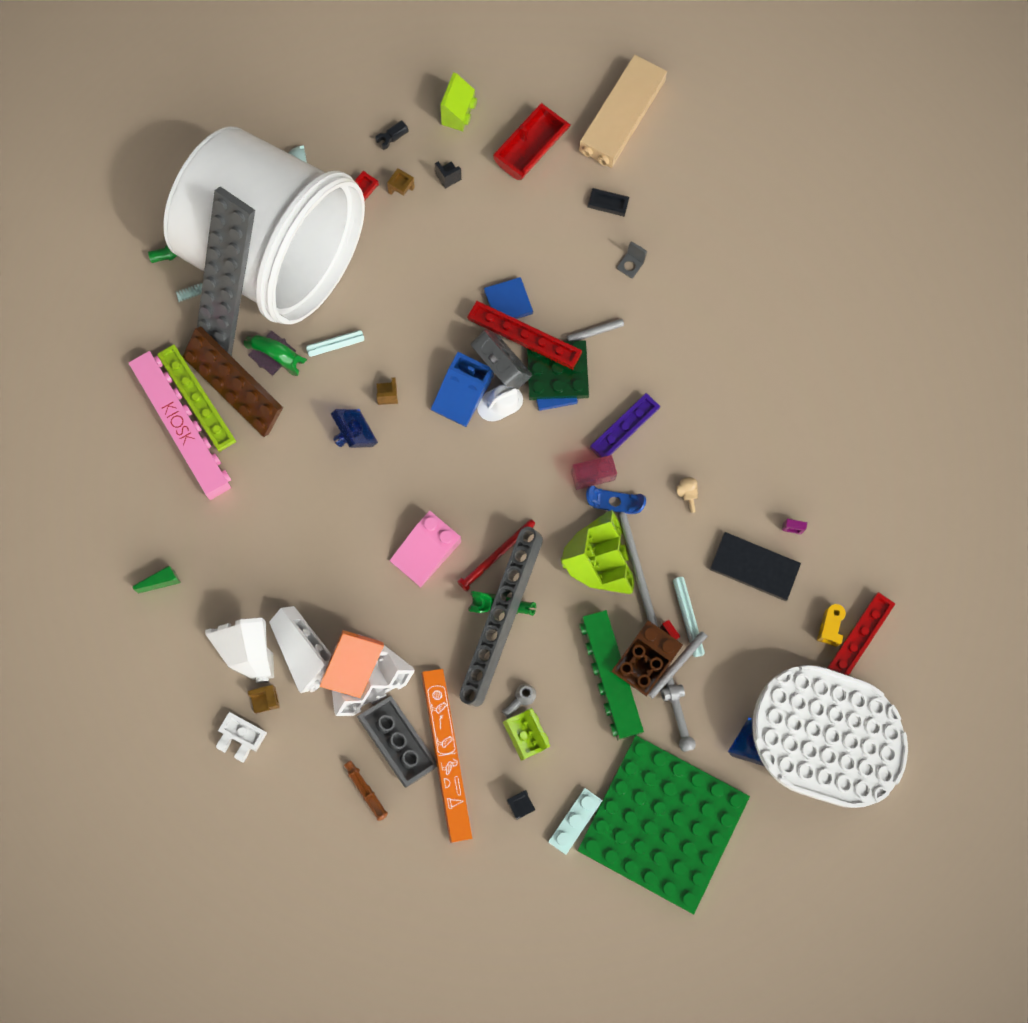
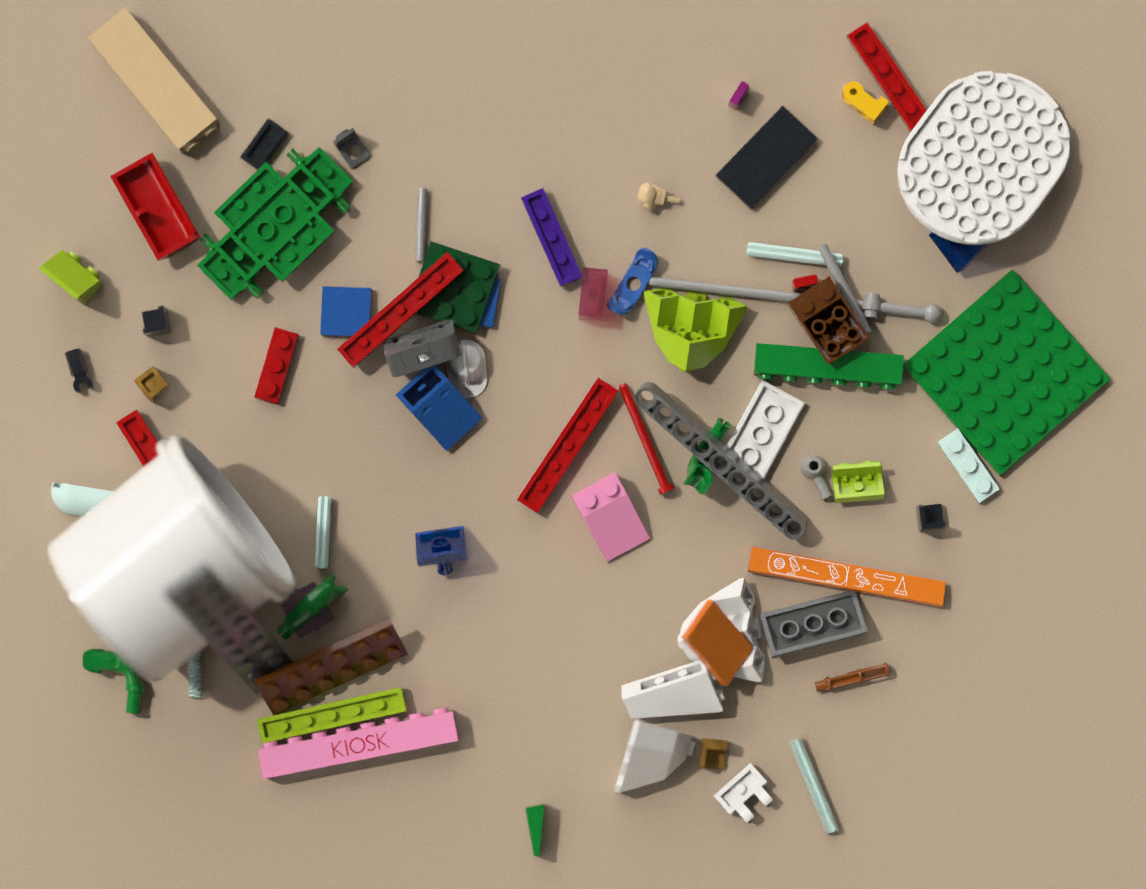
camera: 55 degrees left, 10 degrees up
(265, 792) = (816, 791): none -> light aqua axle
(387, 392) = (407, 493): pearl gold panel -> none
(448, 267) = (276, 365): none -> red plate
(469, 496) = (567, 445): none -> red plate
(541, 643) = (763, 428): none -> white tile
(554, 226) = (274, 222): none -> green piece

